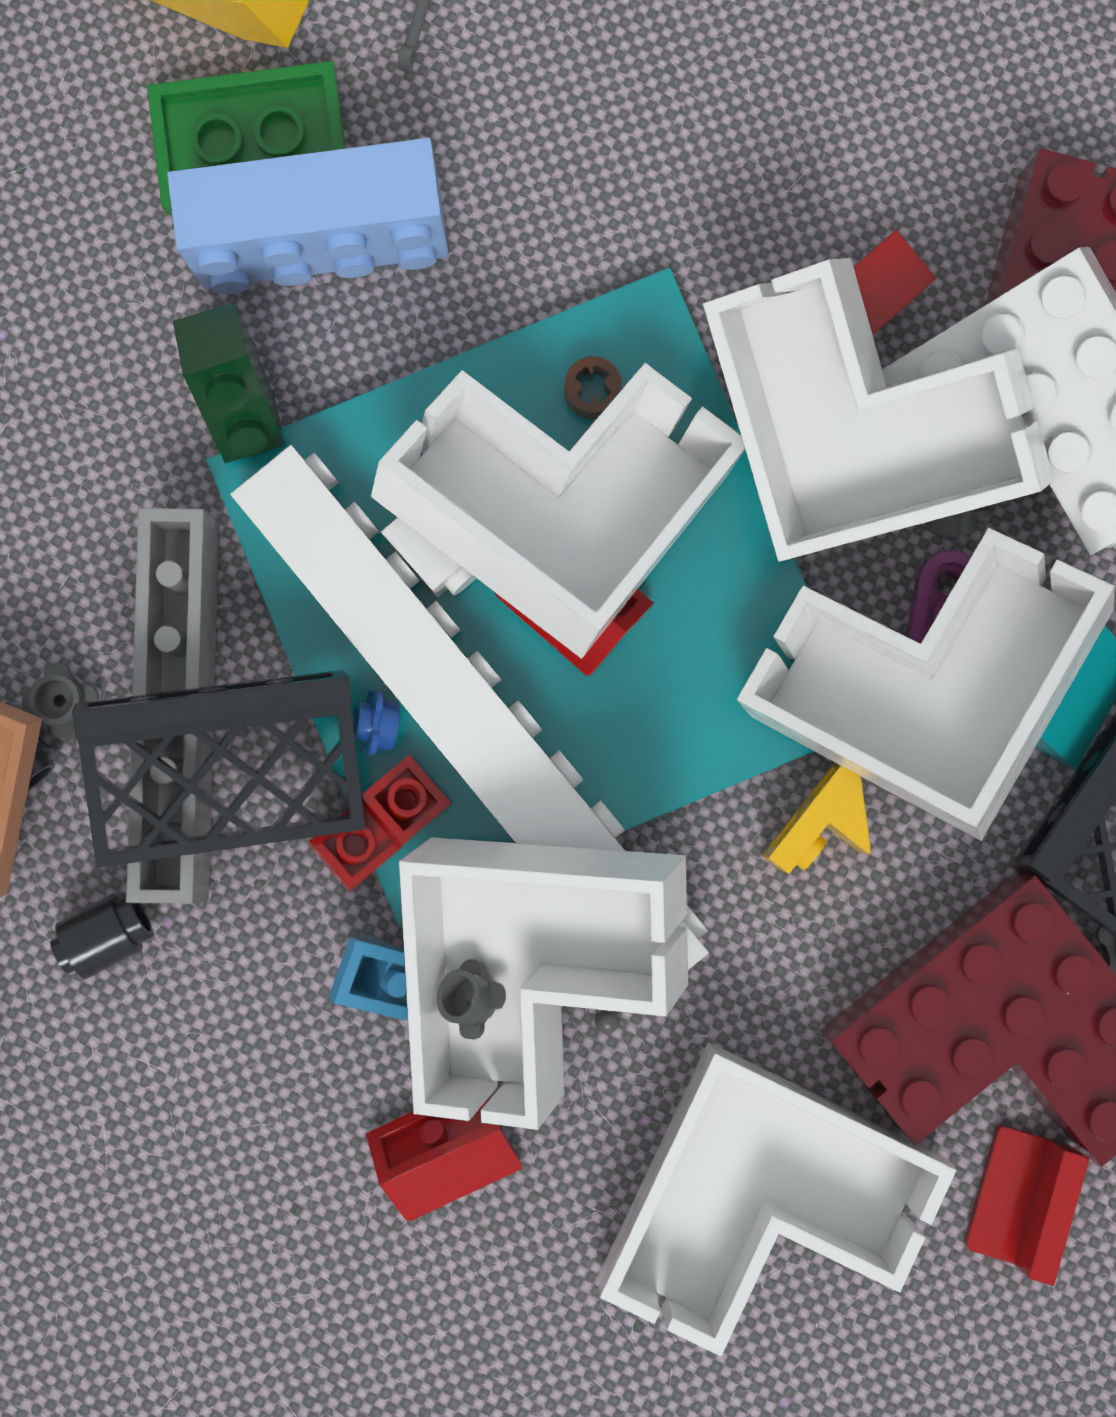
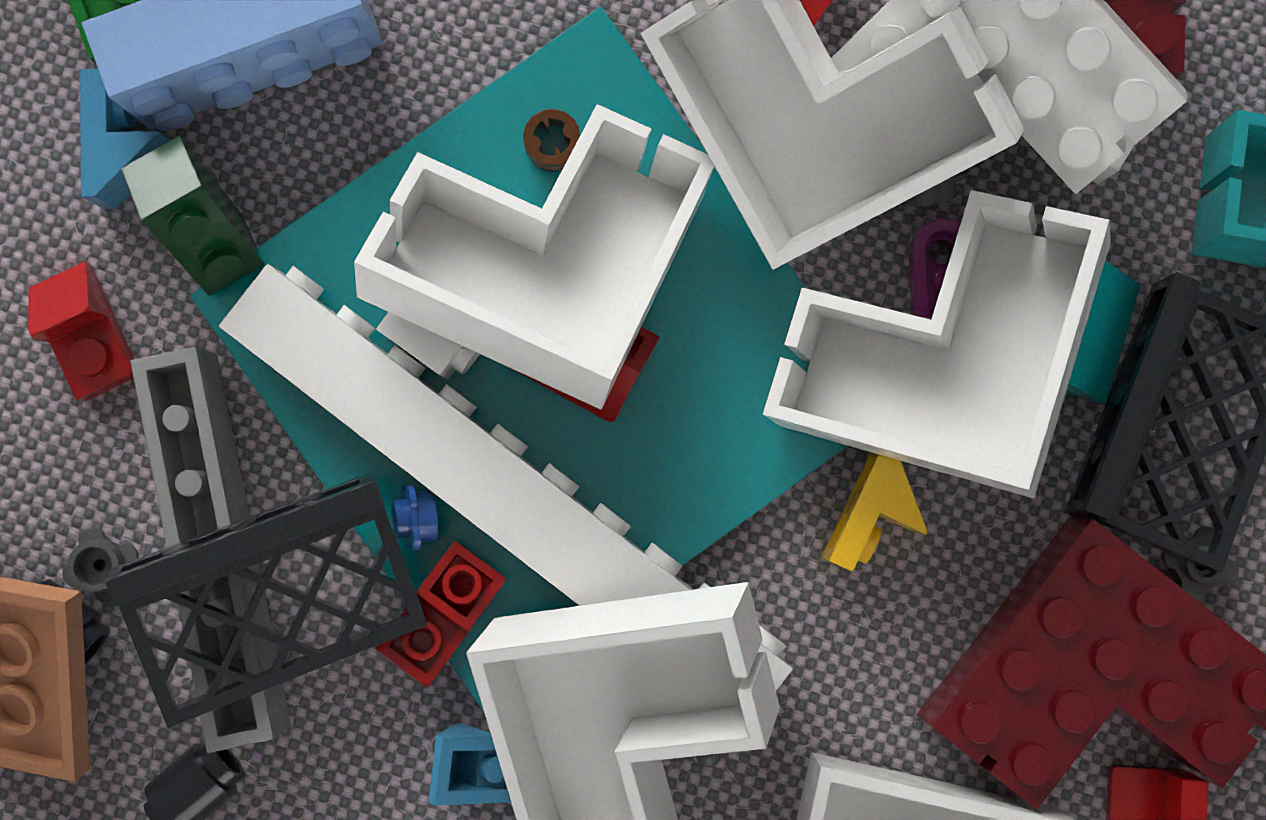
camera: 20 degrees left, 0 degrees up
(93, 469) = (82, 331): none -> red slope
(159, 293) = (107, 143): none -> dark azure slope
(456, 995) = (568, 768): dark grey plate -> none

